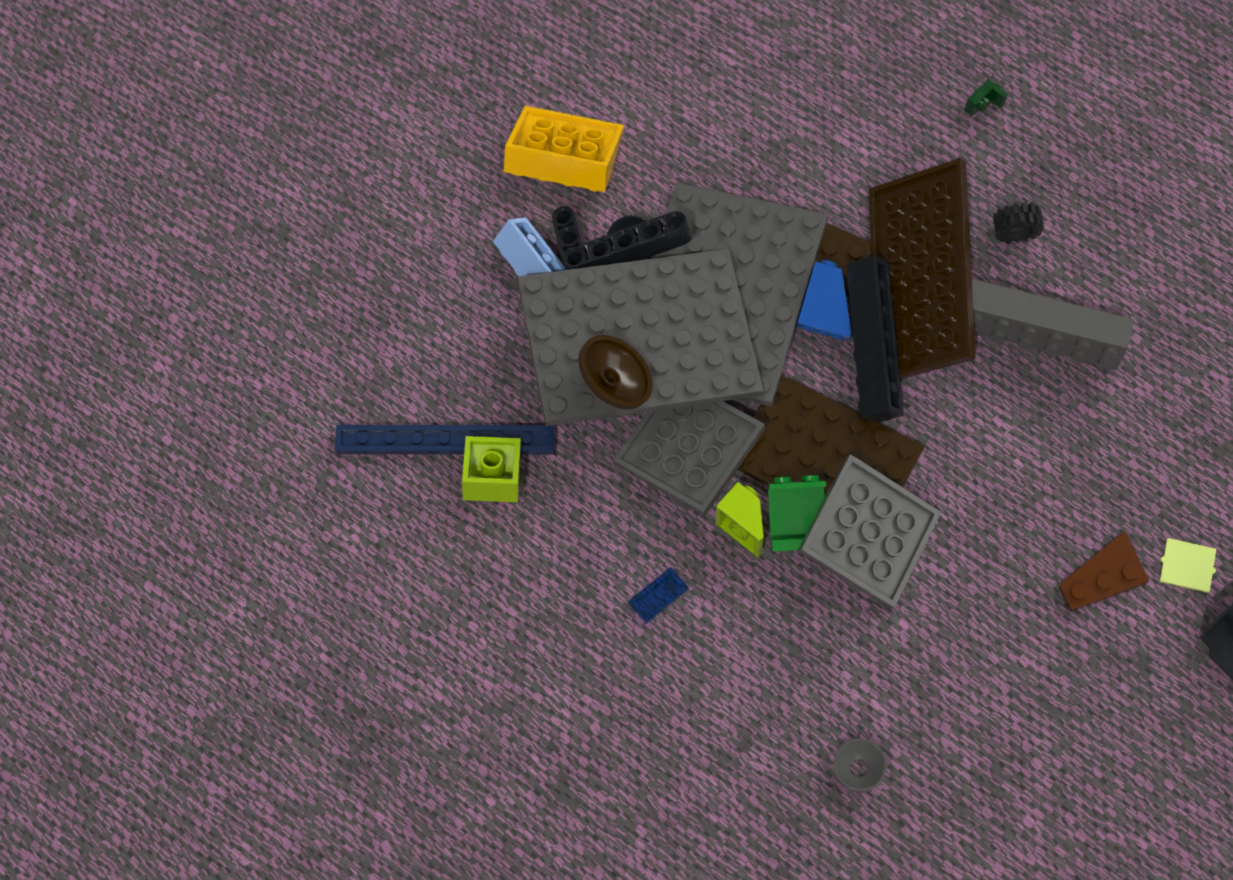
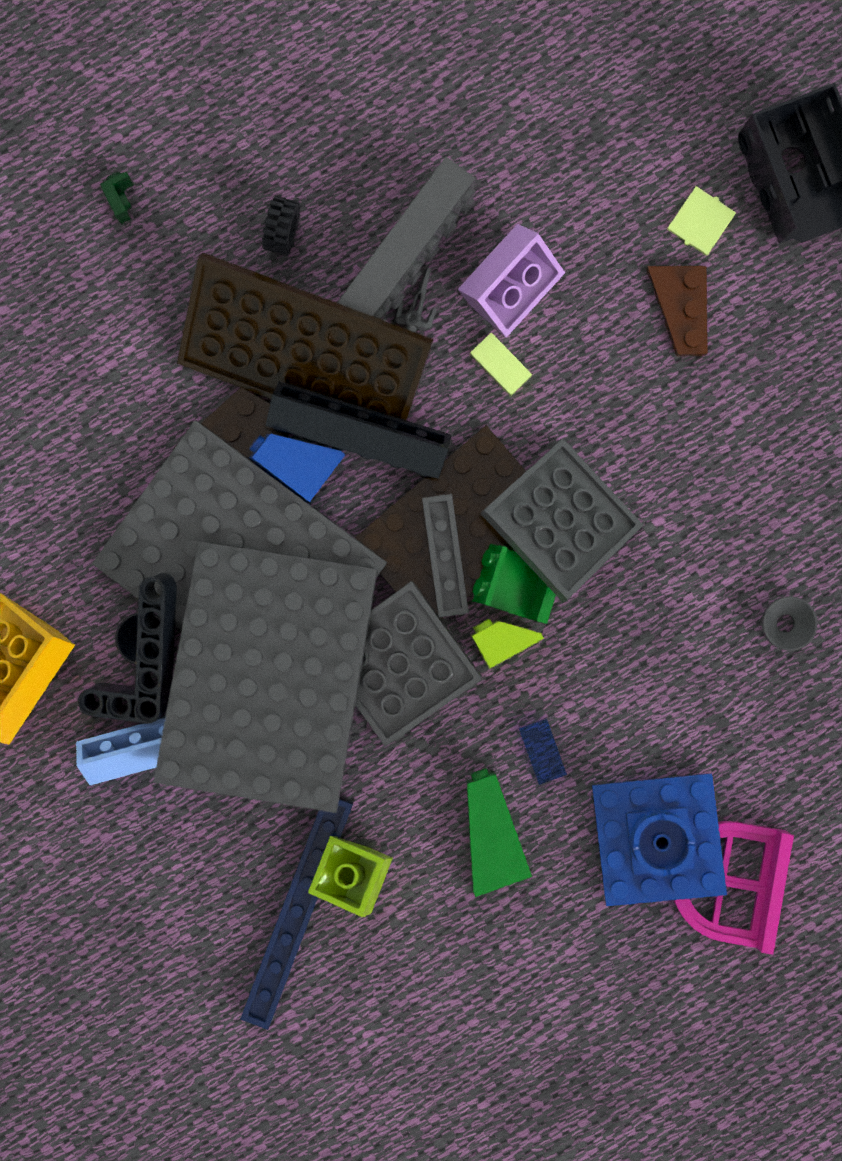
camera: 70 degrees left, 20 degrees up
(567, 576) = (494, 844): none -> green slope
(607, 838) = (768, 889): none -> dark pink window
(615, 372) = (312, 711): dark brown dish -> none
(618, 721) = (638, 813): none -> blue piece
(797, 446) = (445, 555): none -> dark grey plate
(982, 441) = (500, 364): none -> yellowish green tile
(988, 356) = (413, 319): none -> dark grey piece
(1059, 422) = (512, 279): none -> lavender slope

